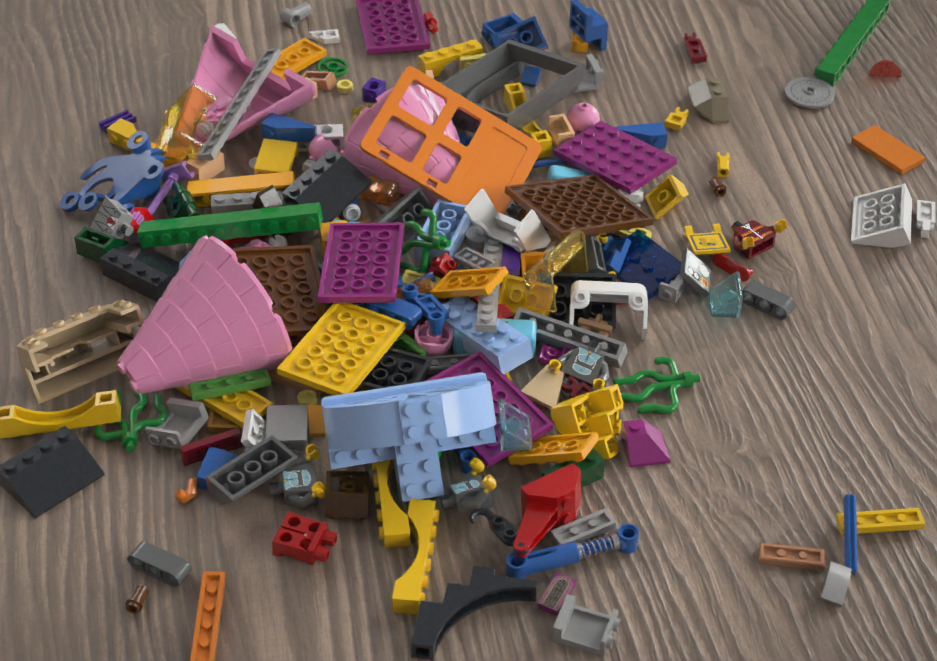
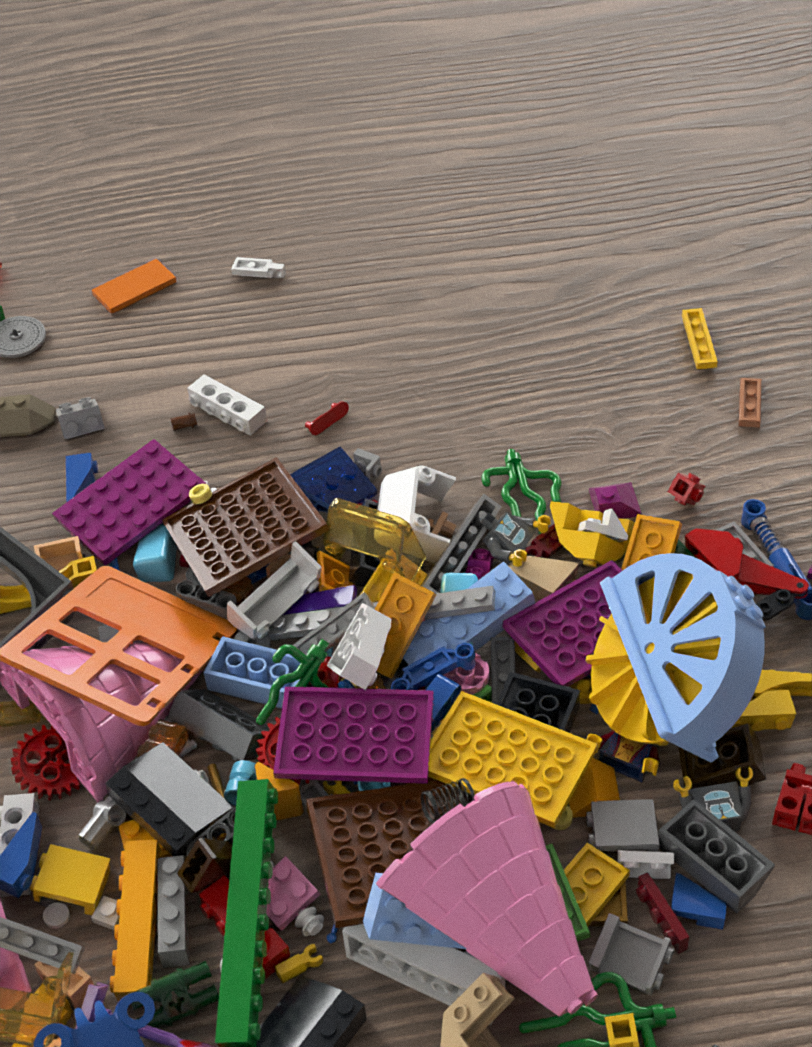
camera: 85 degrees left, 5 degrees up
(189, 493) = (740, 934): orange arm -> none
(298, 304) = (434, 804): none -> pearl dark grey piece
(319, 147) = (63, 820): bright pink cylinder -> none
(435, 258) = (361, 647): none -> white brick
(582, 116) = (31, 532): bright pink cylinder -> none
(586, 417) = (610, 526): none -> white slope
(617, 186) = (200, 493): none -> light yellow tile
(654, 489) = (687, 489): none -> red brick
(666, 196) = (208, 461): yellow slope -> none
(676, 120) = (49, 451): yellow plate -> none
(696, 272) = (345, 441): tile -> none
(707, 242) = (286, 433): yellow flag -> none
(711, 128) = (79, 418): none -> light grey bracket
(722, 165) = (141, 415): yellow bar -> none
(727, 297) = (383, 420): clear light blue slope -> none
(739, 205) = (227, 404): none -> white brick
(754, 237) = (284, 394): dark red torso -> none
(768, 300) = (386, 392): dark grey beam -> none
(835, 584) = (778, 369): light grey slope -> none
(850, 533) = (725, 354): blue axle -> none
(883, 218) = (257, 296): white slope -> none

